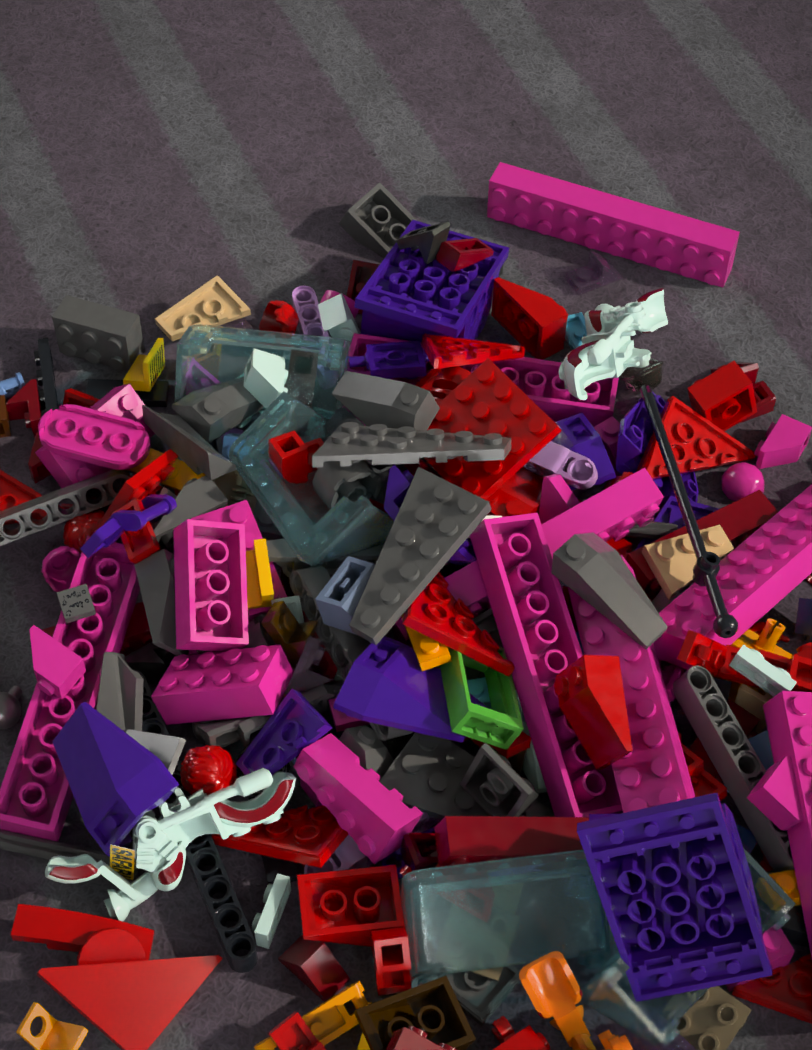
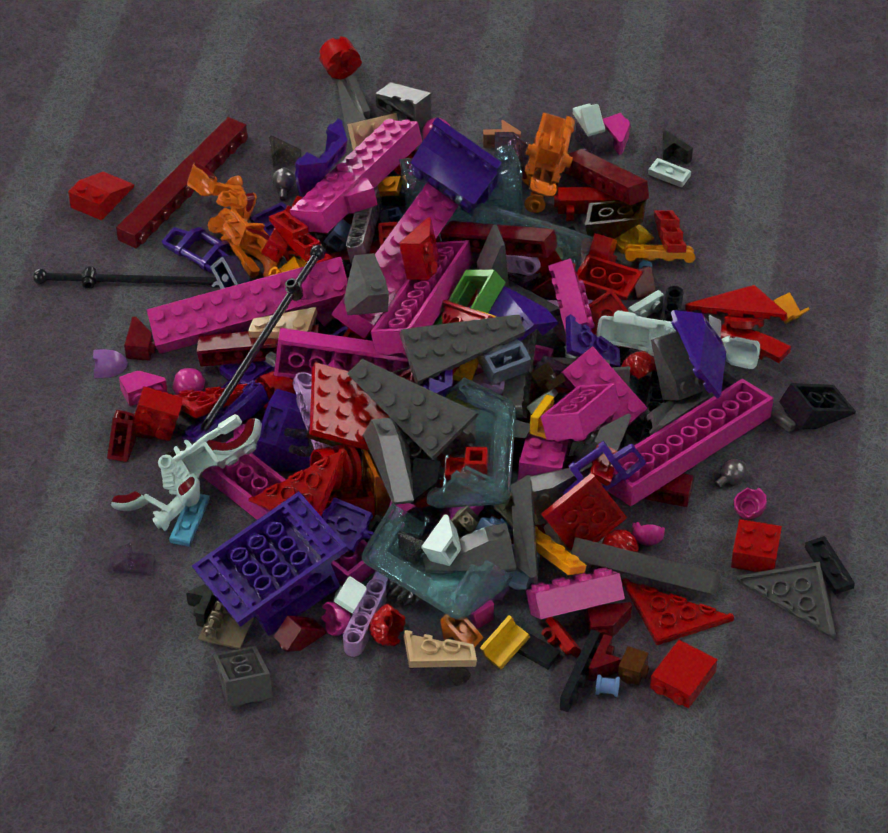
camera: 145 degrees left, 5 degrees down
(54, 664) = (696, 429): dark pink slope -> none
(76, 603) = (663, 455): dark grey tile -> none
(94, 437) = (584, 563): dark pink tile -> none
(98, 333) = (522, 679): dark grey brick -> none
(426, 240) = (257, 570): pearl dark grey slope -> none
(462, 253) = (247, 560): dark red slope -> none
(530, 318) = (214, 522): red slope -> none
(612, 224) = (91, 576): dark pink brick -> none
(702, 652) = (343, 249): red plate -> none
(761, 672) = (318, 230): light aqua plate -> none

